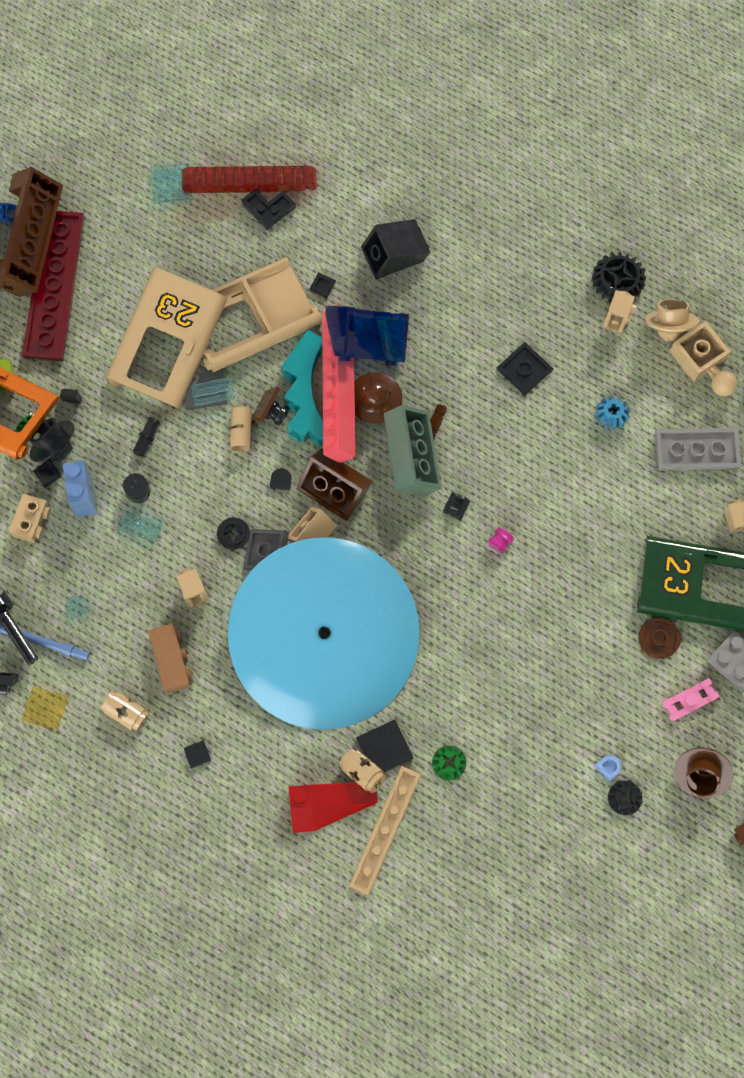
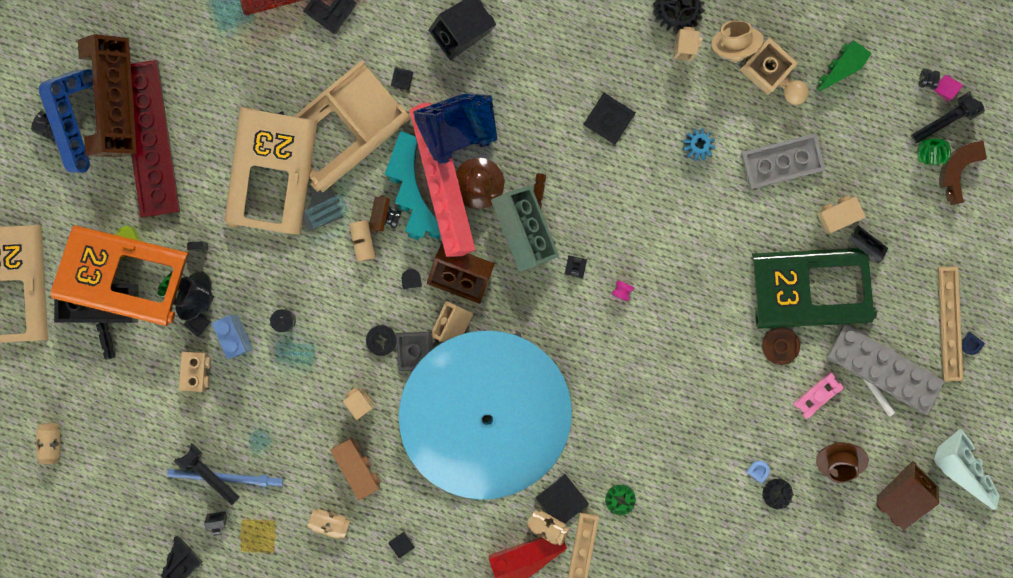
camera: 15 degrees left, 15 degrees up
(146, 437) = (277, 268): black axle -> none

